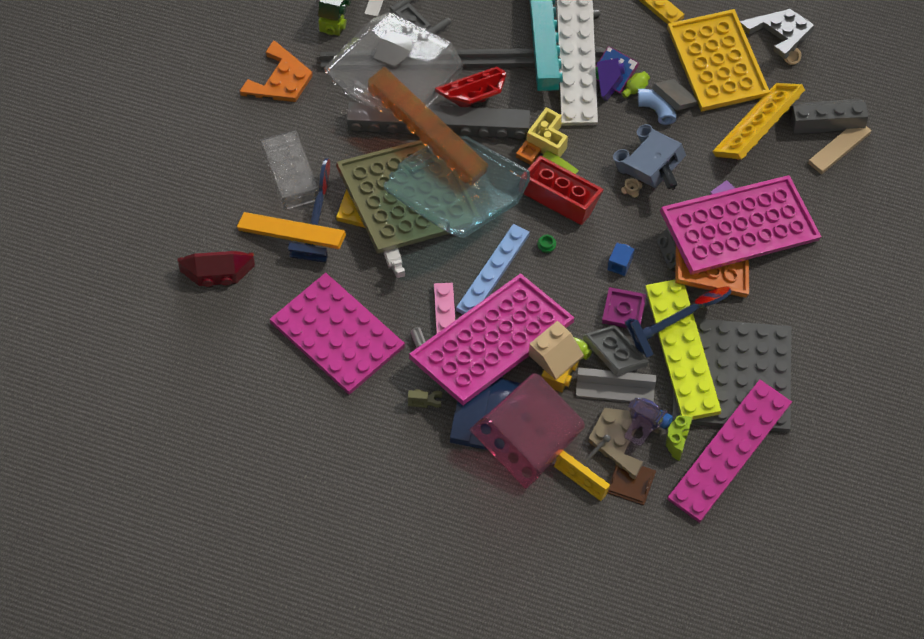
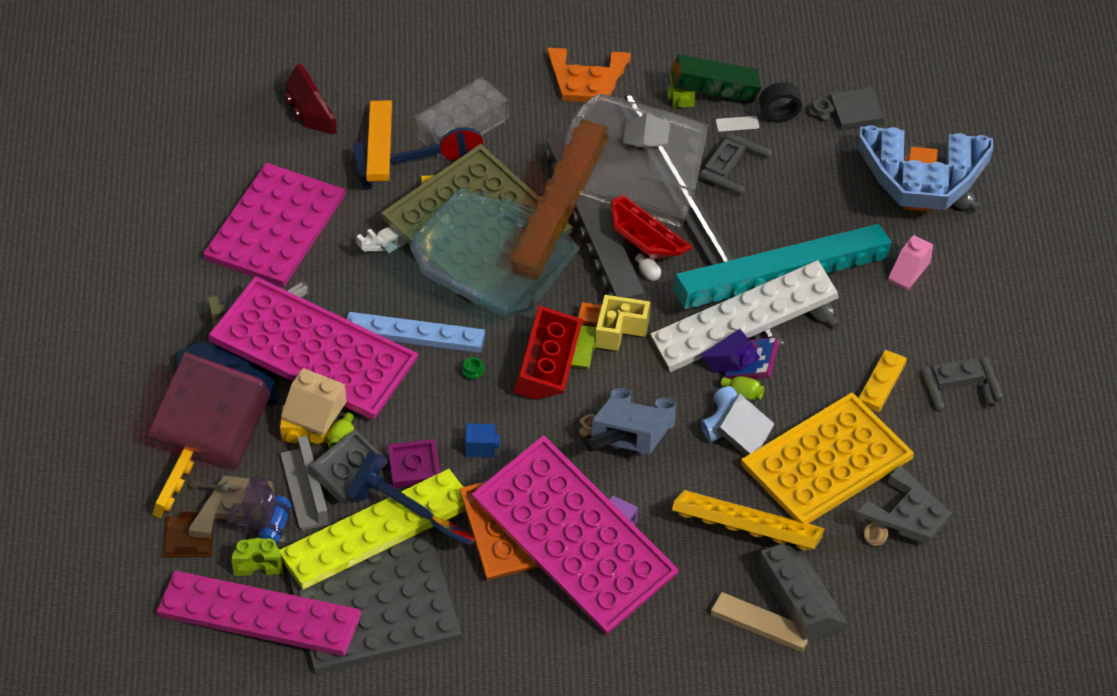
camera: 70 degrees right, 10 degrees down
(444, 305) = (351, 301): bright pink plate -> none
(497, 102) = (648, 268): none -> white cylinder

